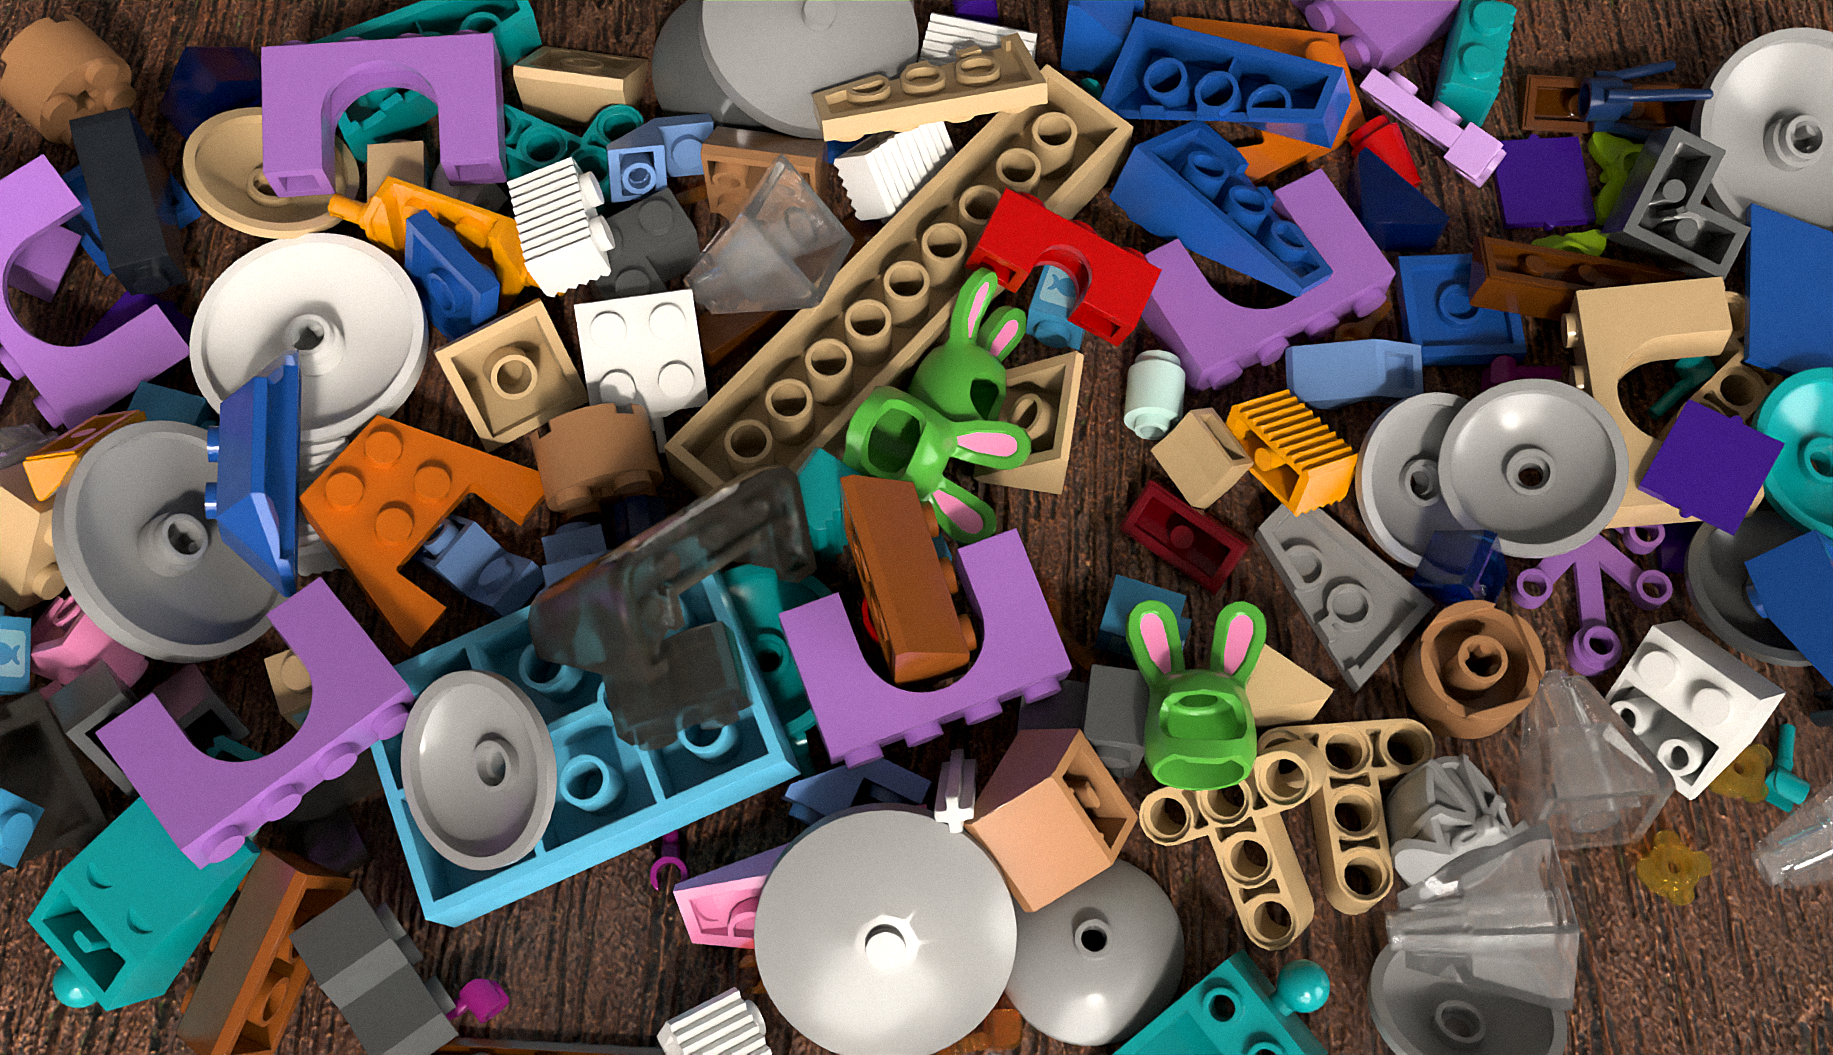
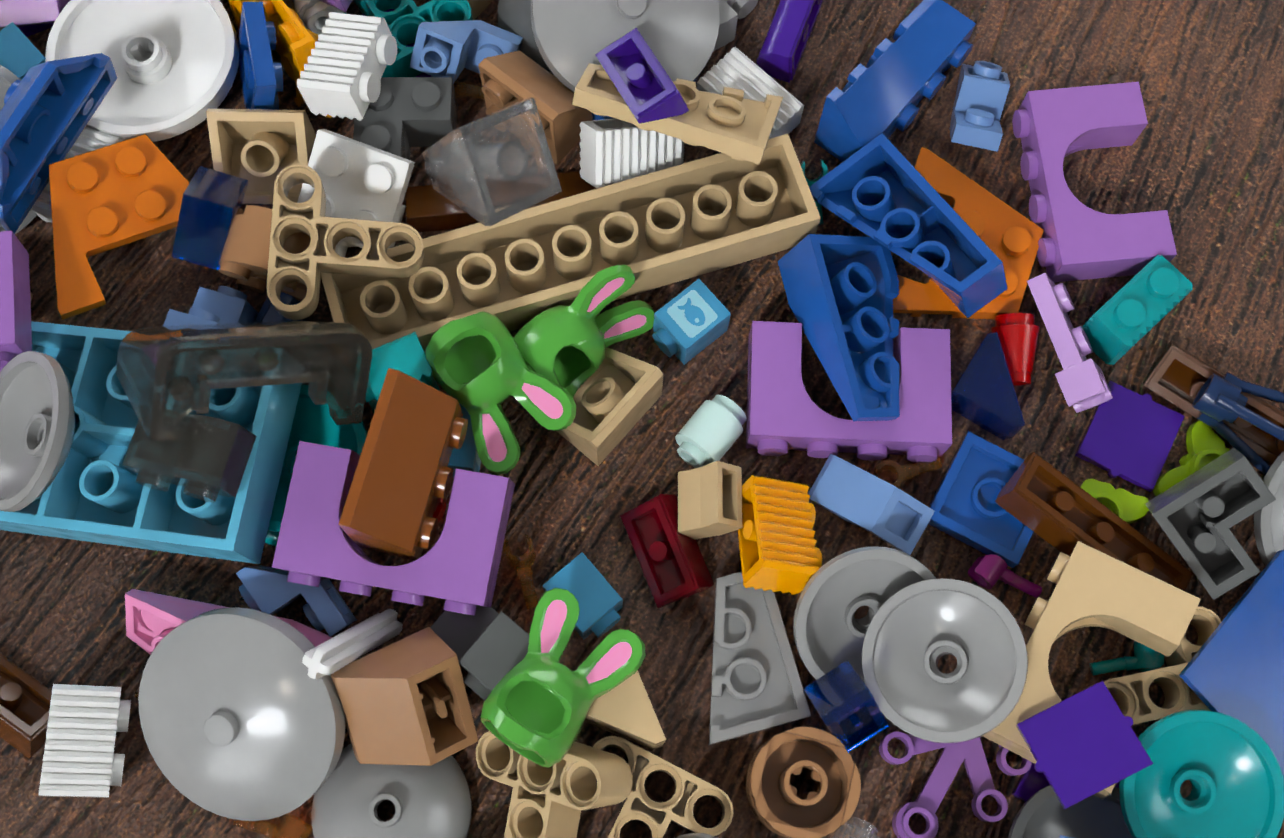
camera: 30 degrees right, 5 degrees up
(479, 567) = (154, 279): medium blue slope -> none
(503, 464) = (207, 216): none -> clear blue slope
(660, 403) = (325, 234): none -> tan beam
(669, 855) = (149, 569): magenta hand -> none
(881, 77) = (641, 79): none -> dark purple slope
(1108, 279) = (671, 257): red arch -> none

